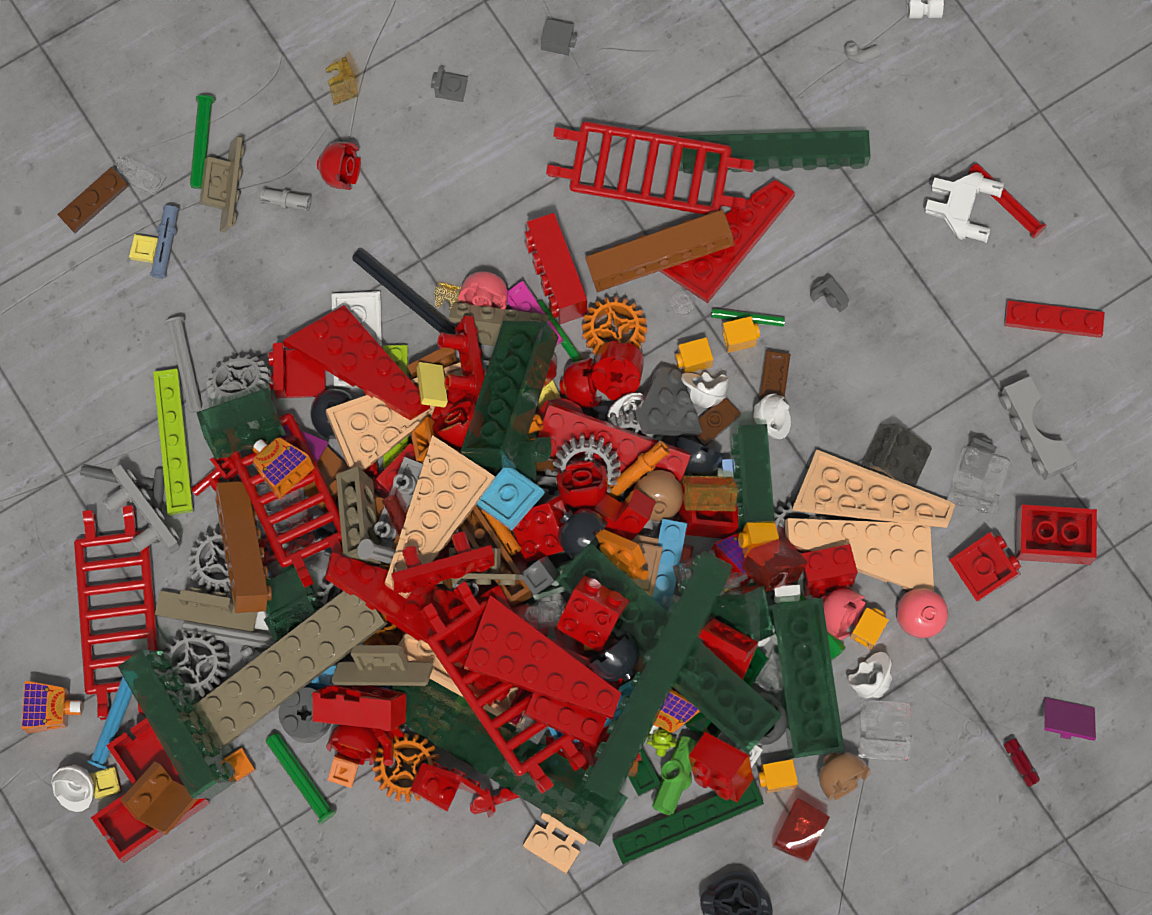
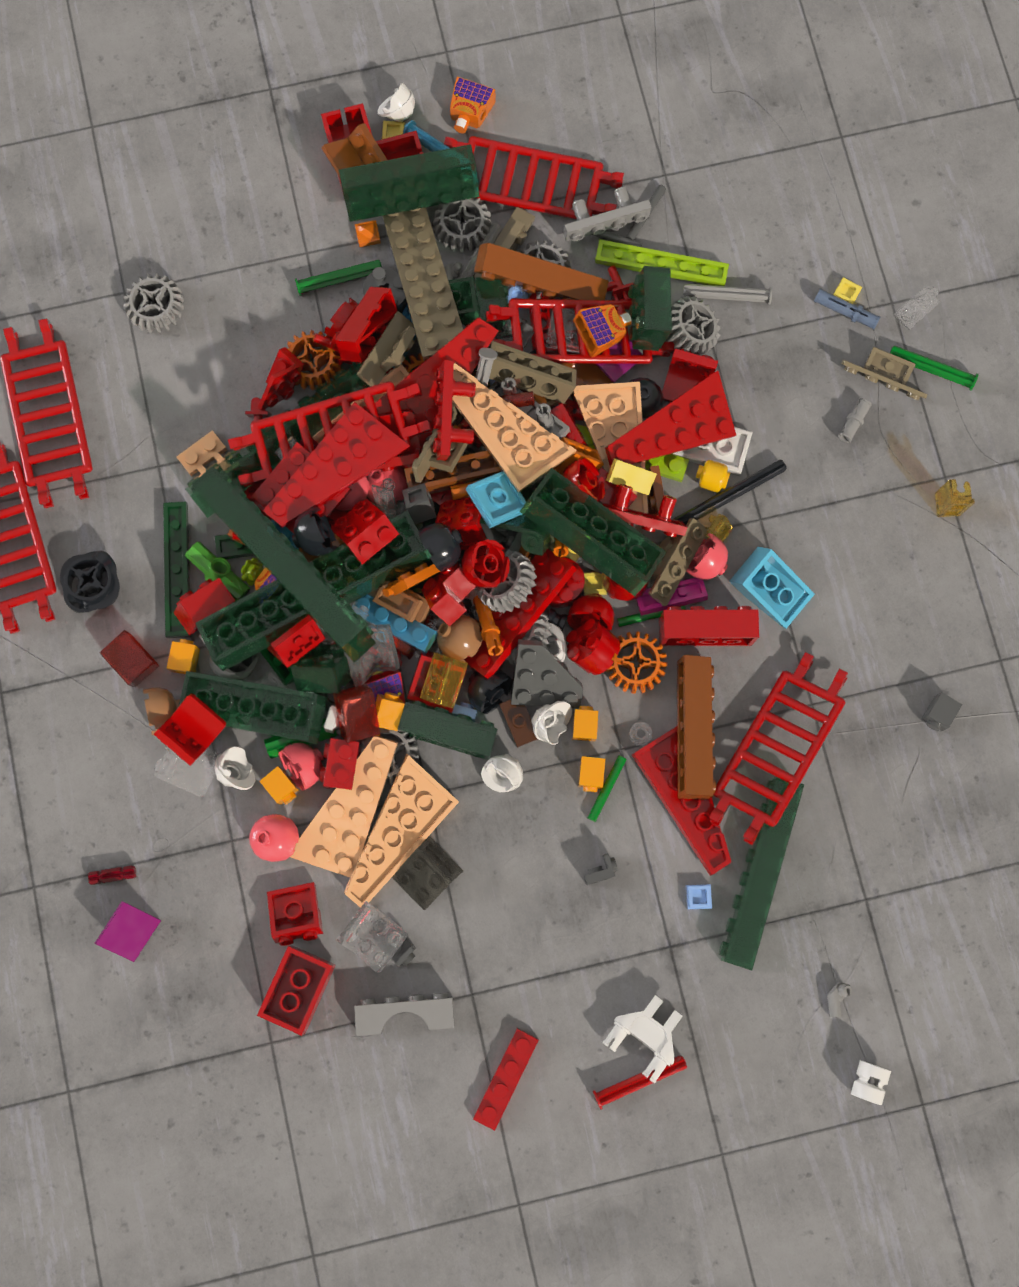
camera: 110 degrees right, 5 degrees up
(93, 200) = (905, 263): reddish brown plate -> none
(339, 165) = (871, 474): red cylinder -> none
(343, 771) = (327, 310): orange tile -> none
(394, 315) = (713, 475): none -> yellow head
(449, 85) = (922, 597): dark grey bracket -> none
(489, 226) = (772, 586): none -> medium azure slope
(775, 374) = (542, 791): reddish brown plate -> none
(817, 201) = (699, 896): none -> light blue tile
(853, 726) = (190, 729): none -> red bracket

